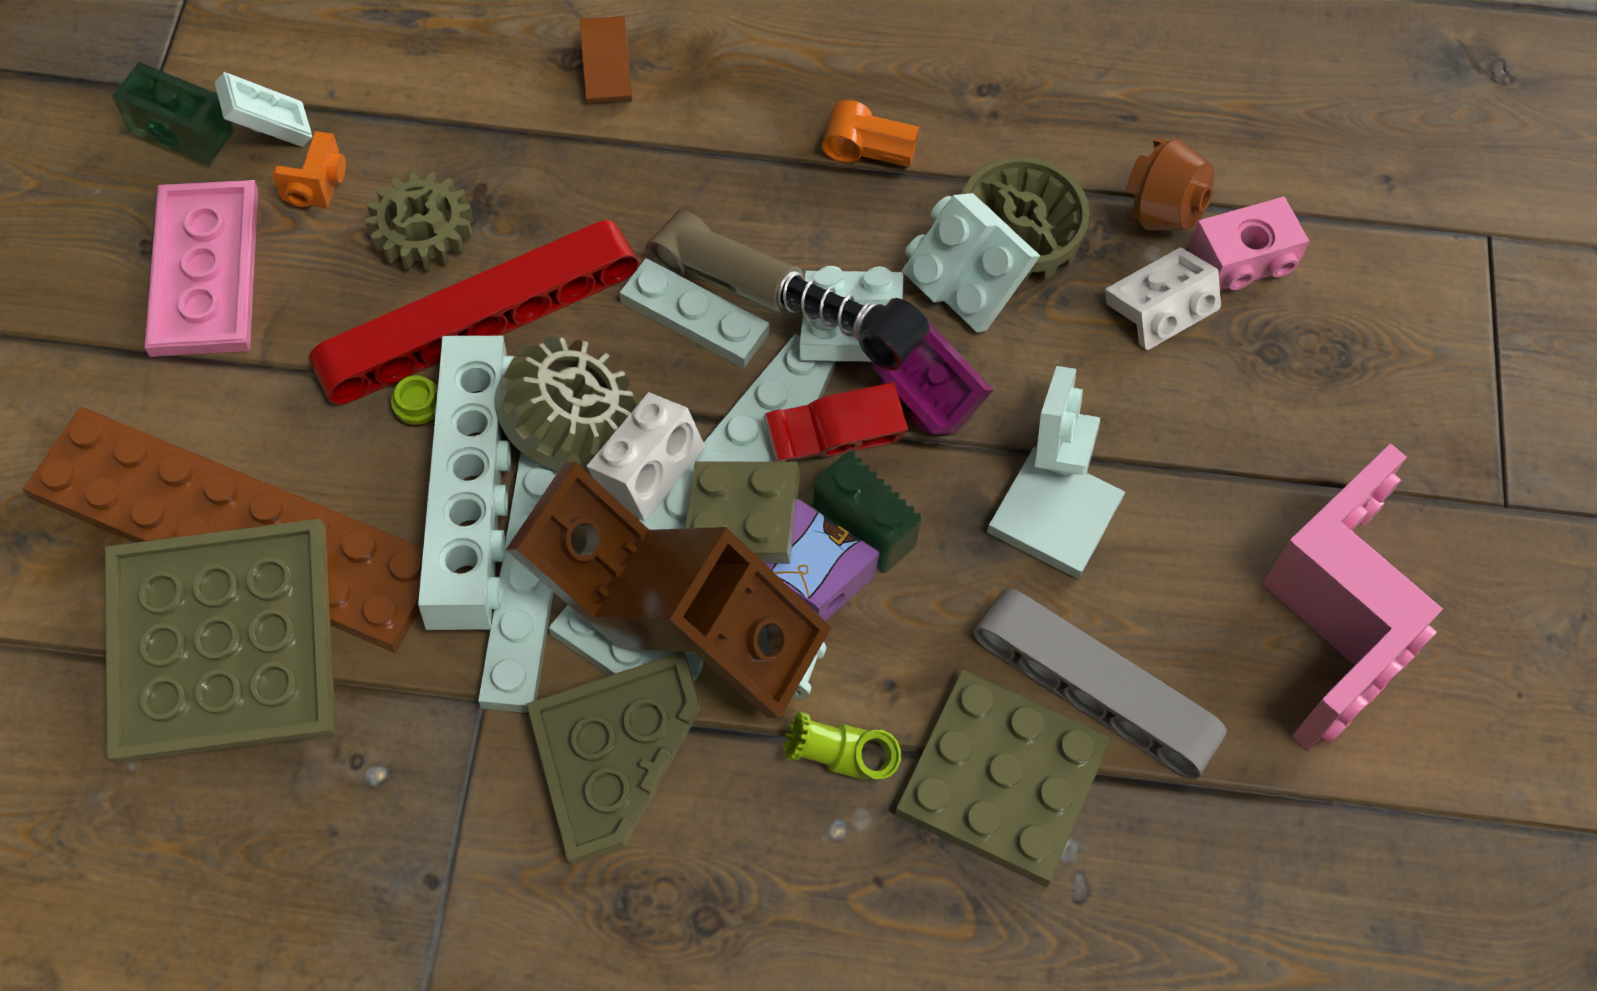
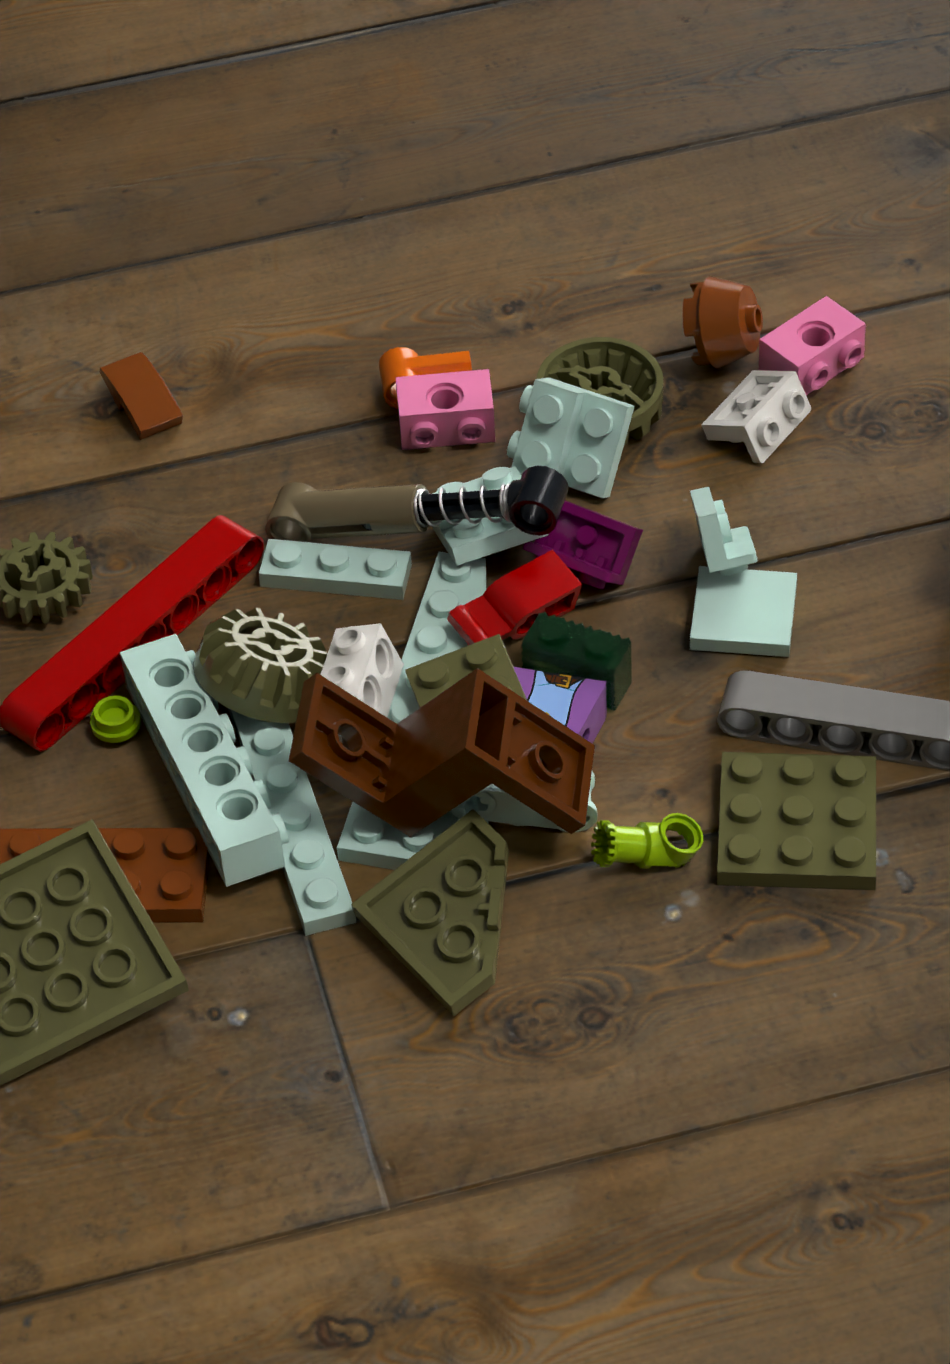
camera: 15 degrees left, 15 degrees down
(892, 175) = (445, 409): none -> bright pink brick

